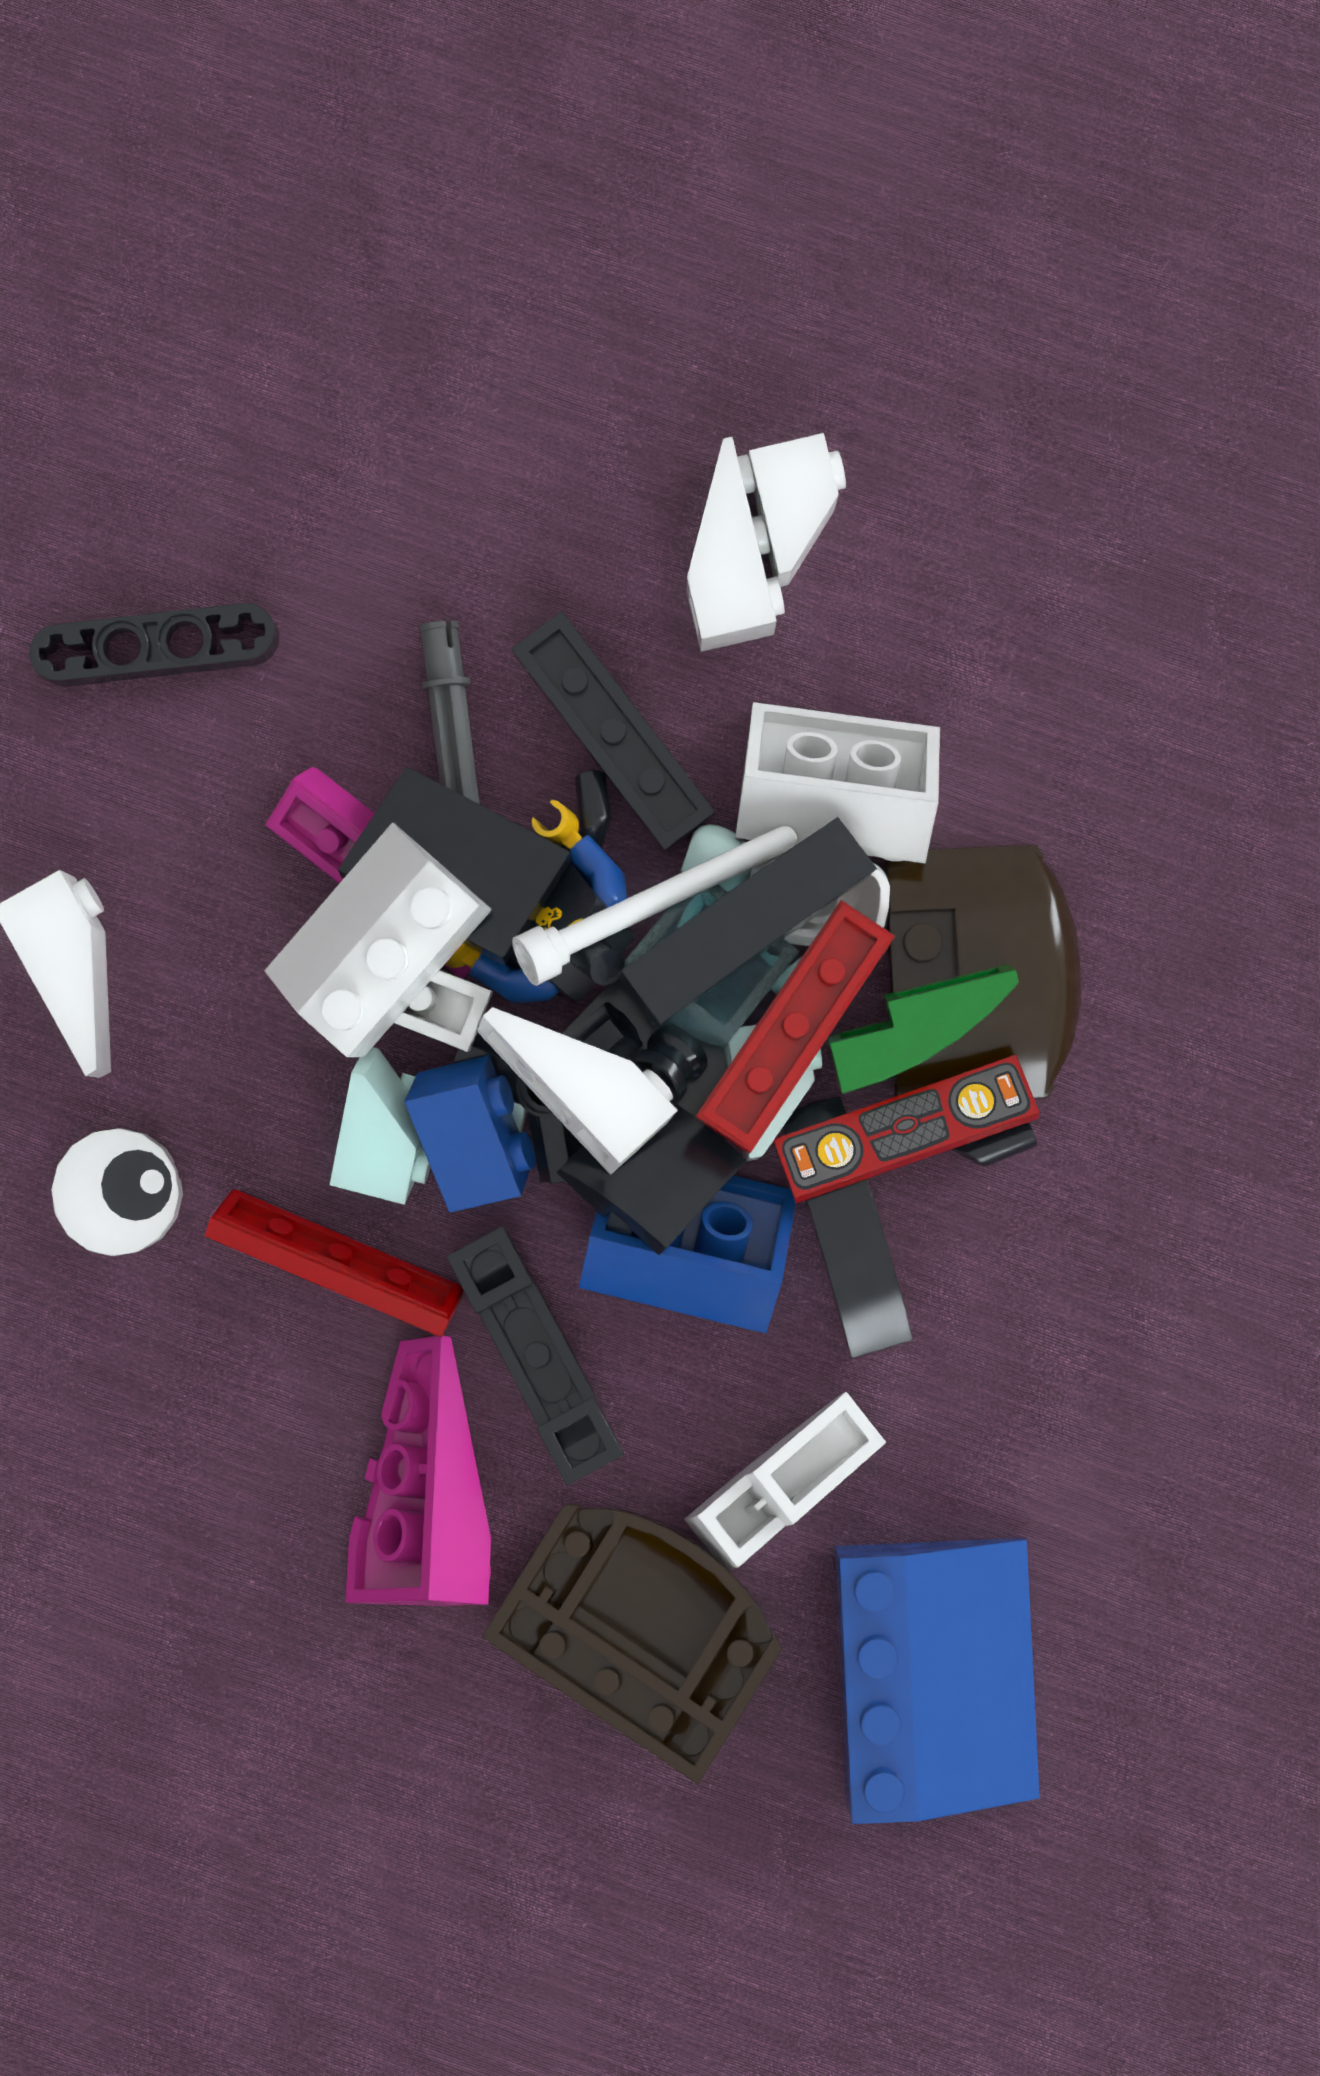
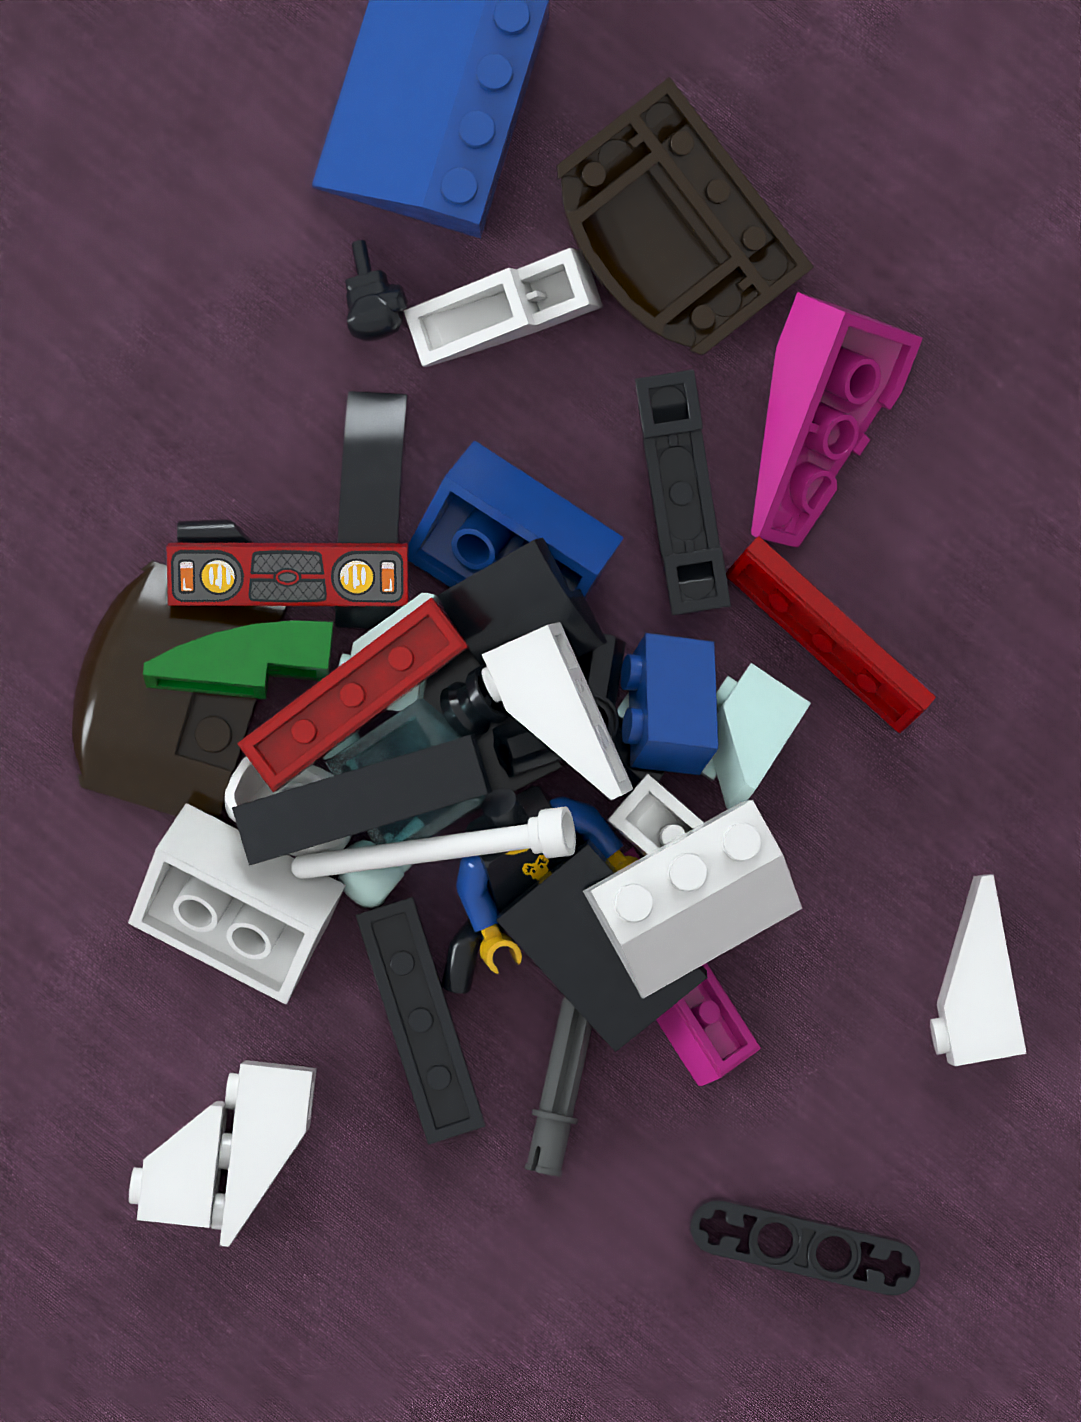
camera: 160 degrees left, 0 degrees up
(117, 1192) = (1002, 766): white tile -> none
(921, 1440) = (372, 302): none -> black piece

